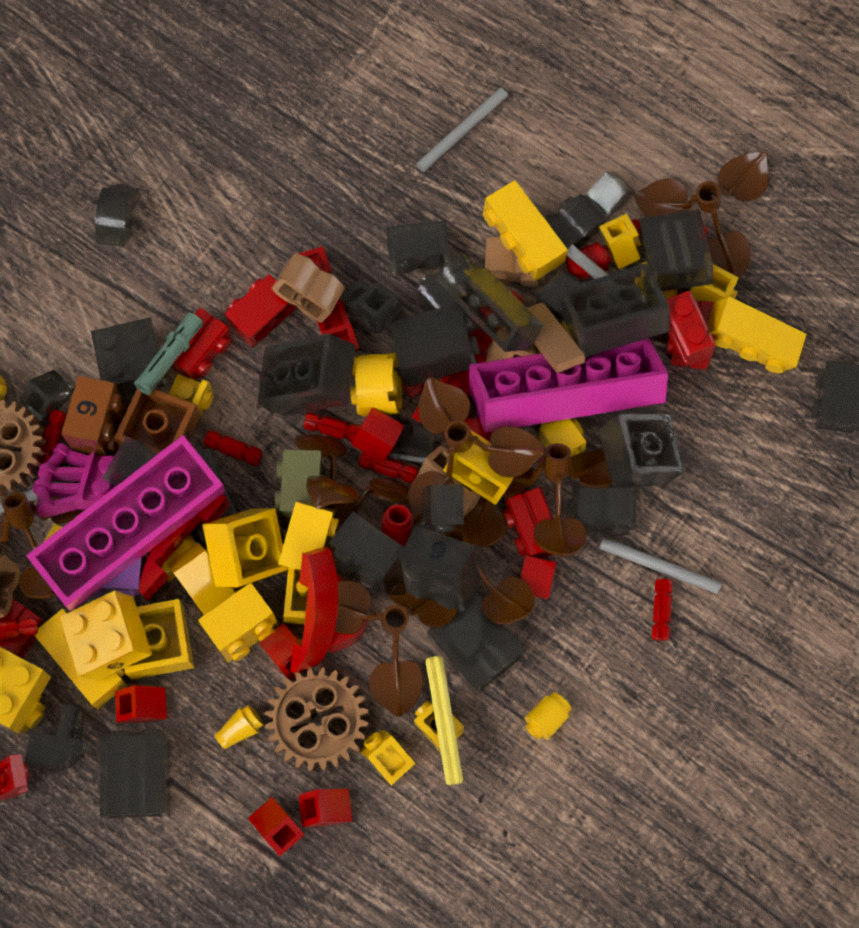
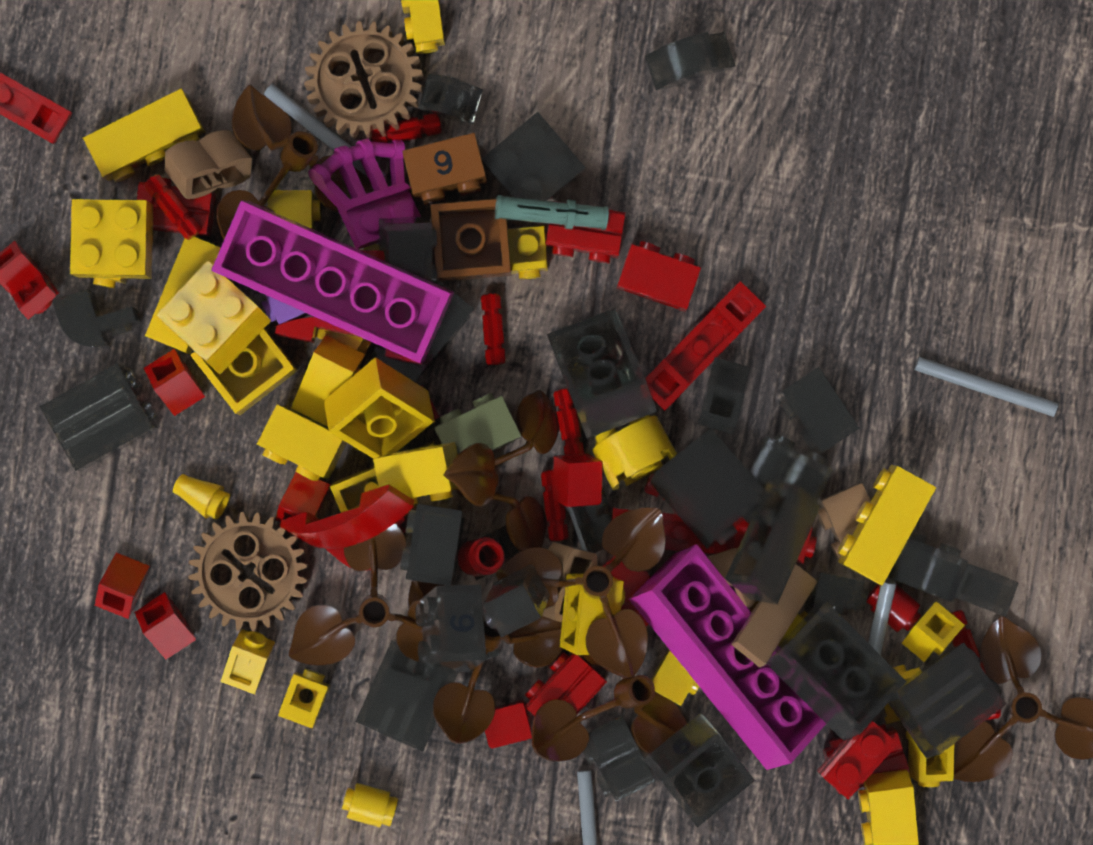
camera: 65 degrees right, 15 degrees up
(308, 287) = (704, 320): medium nougat brick -> none
(444, 720) = (306, 706): light yellow axle -> none

